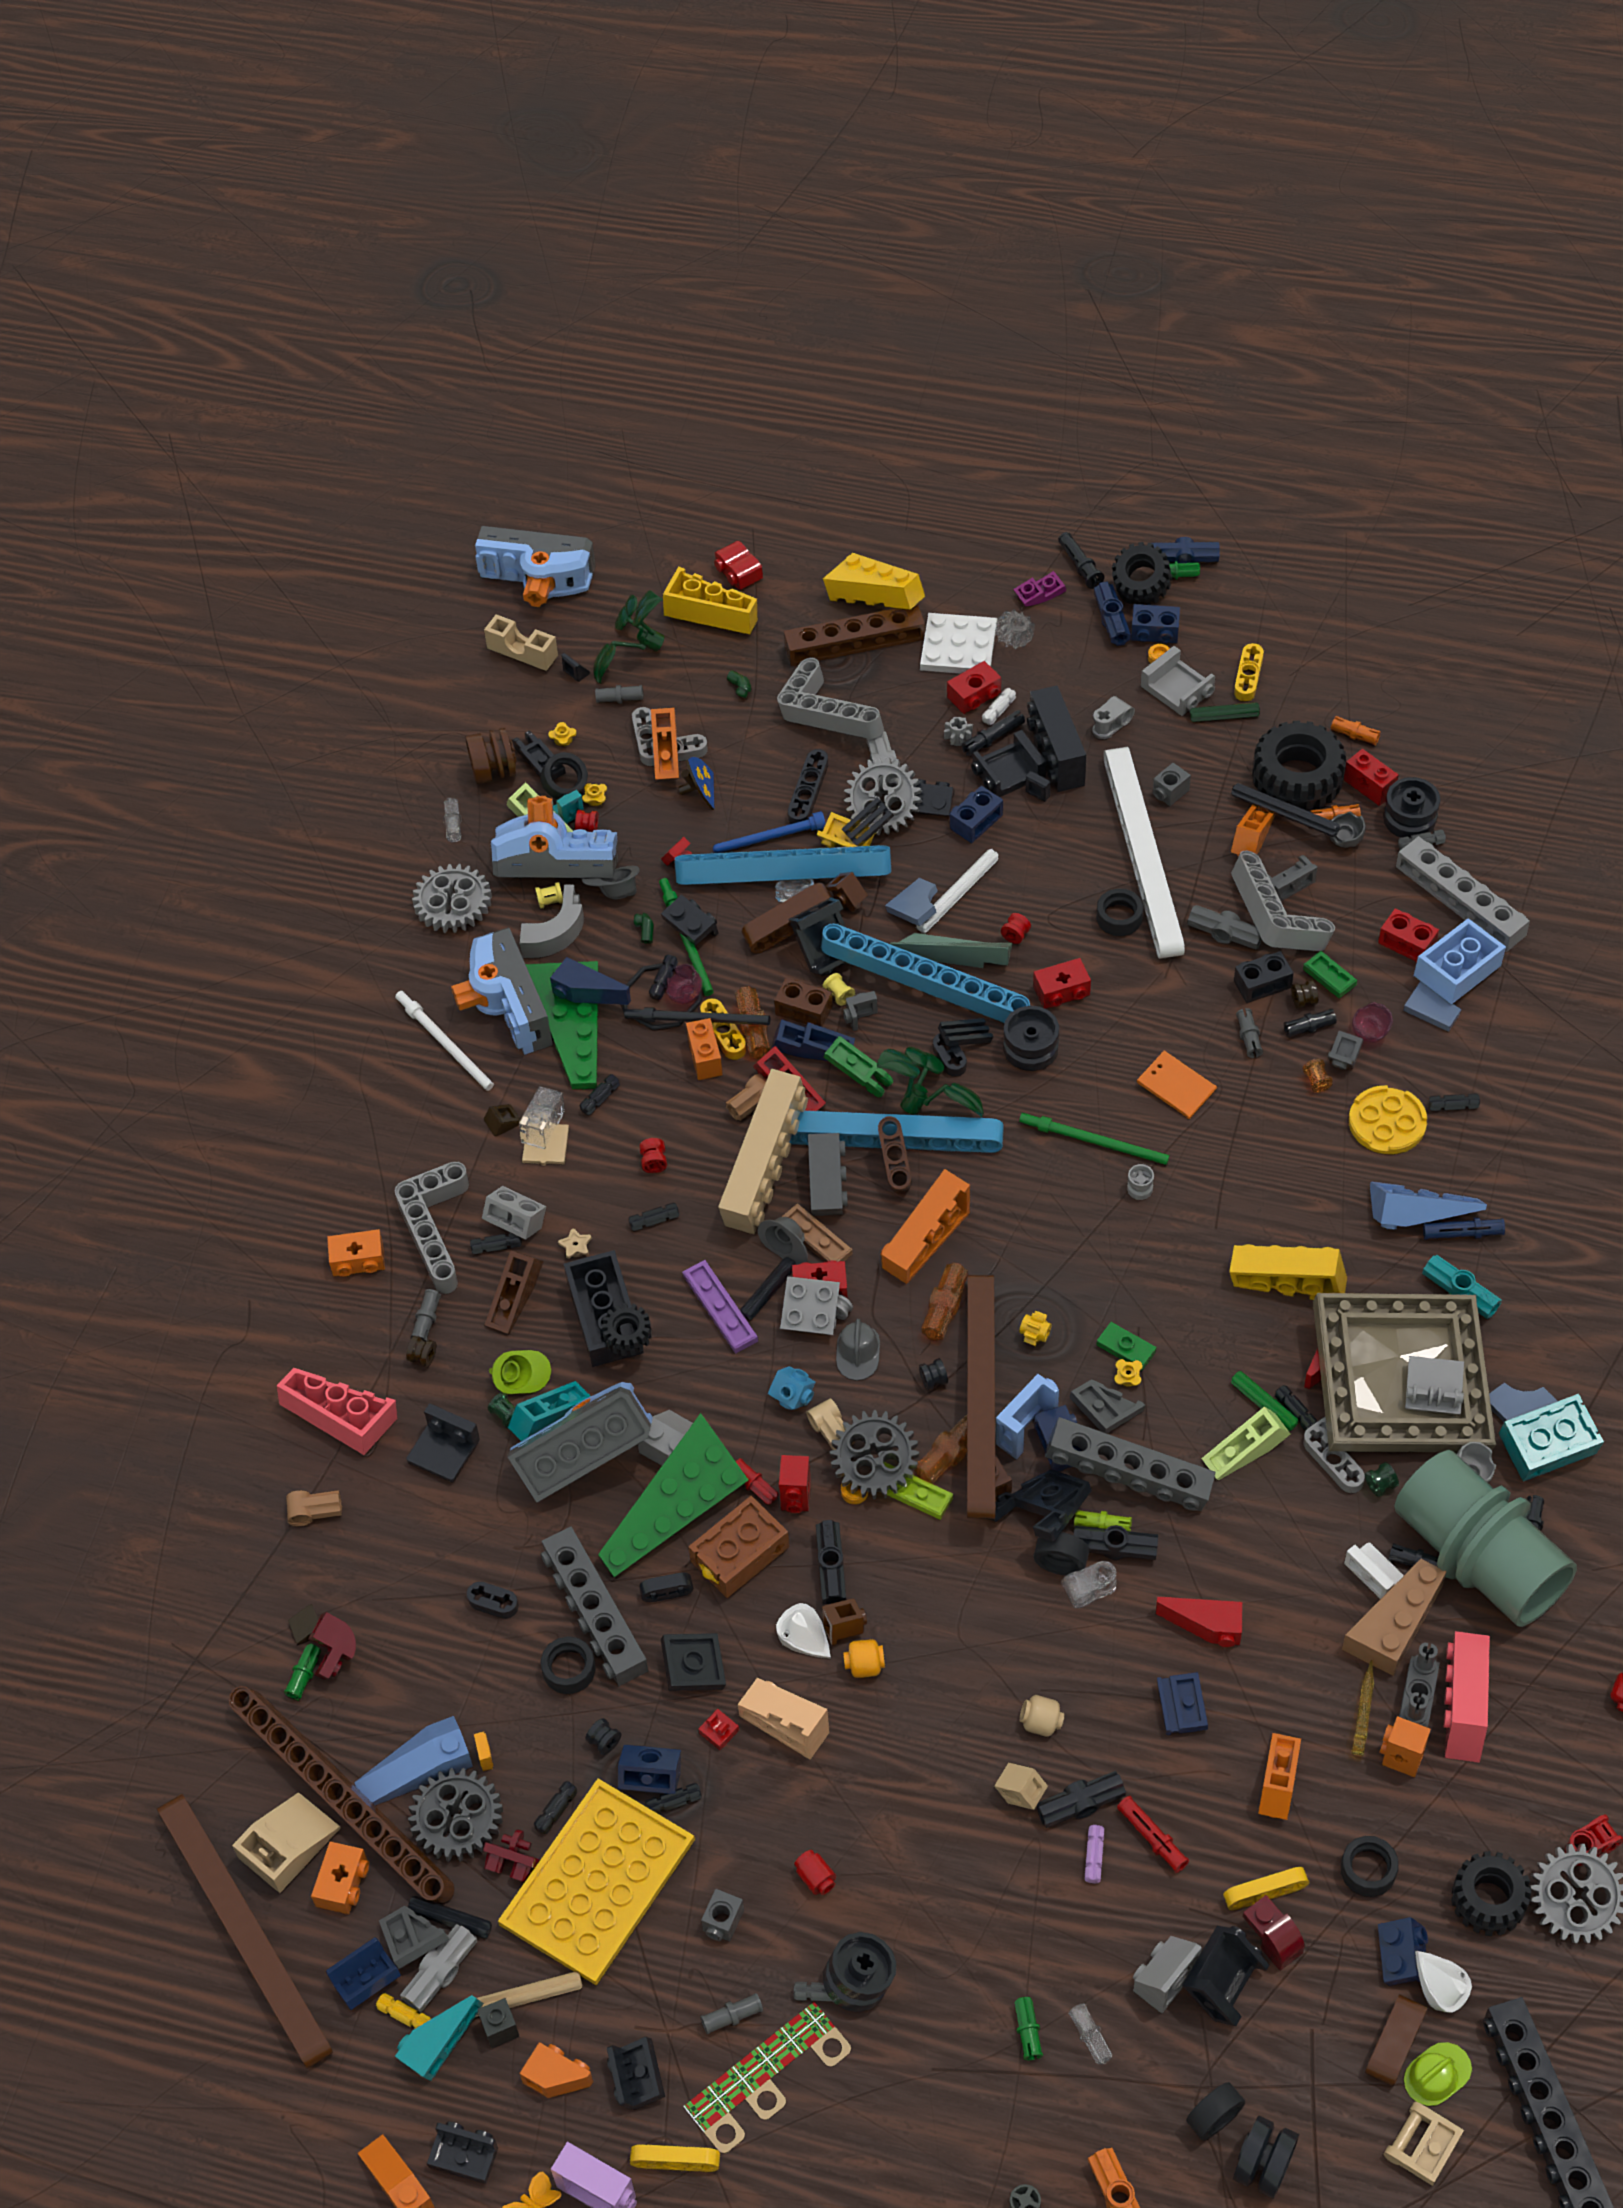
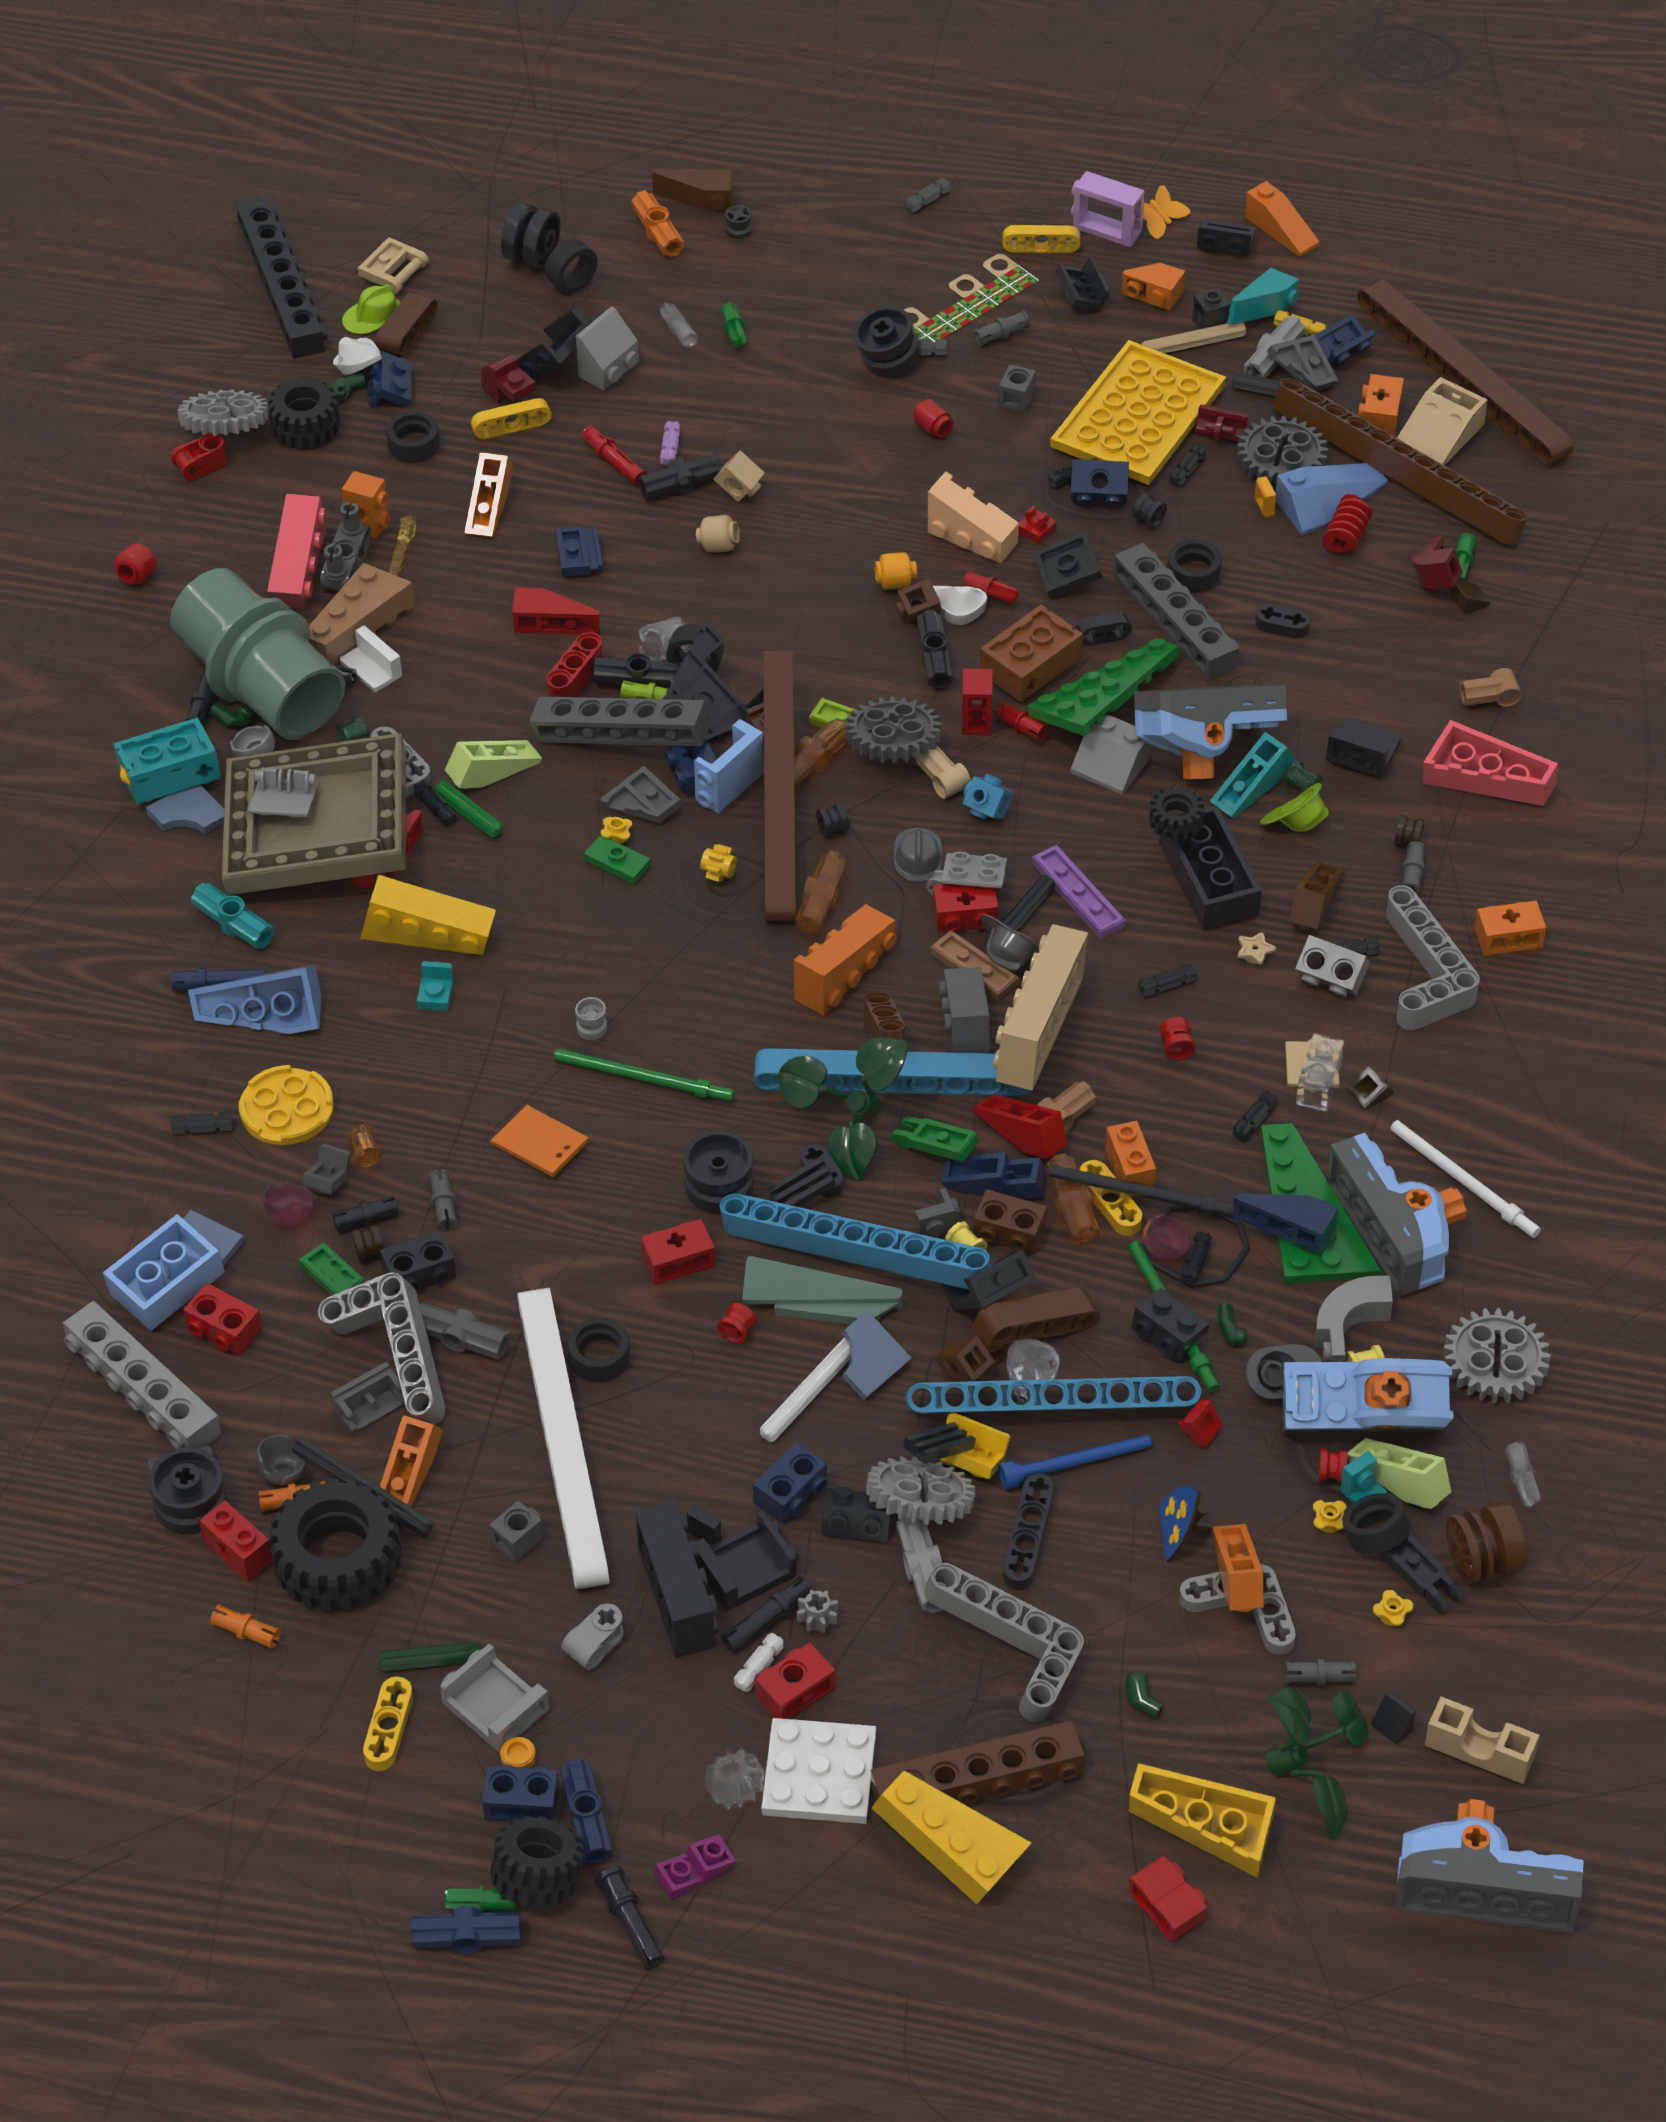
camera: 175 degrees right, 5 degrees down
(405, 1705) = (1347, 525): none -> red piece
(770, 1643) = (991, 587): none -> red axle
(1180, 1537) = (575, 667): none -> red beam
(1275, 1219) = (435, 986): none -> teal bracket
(1455, 1946) = (345, 385): none -> dark green arm

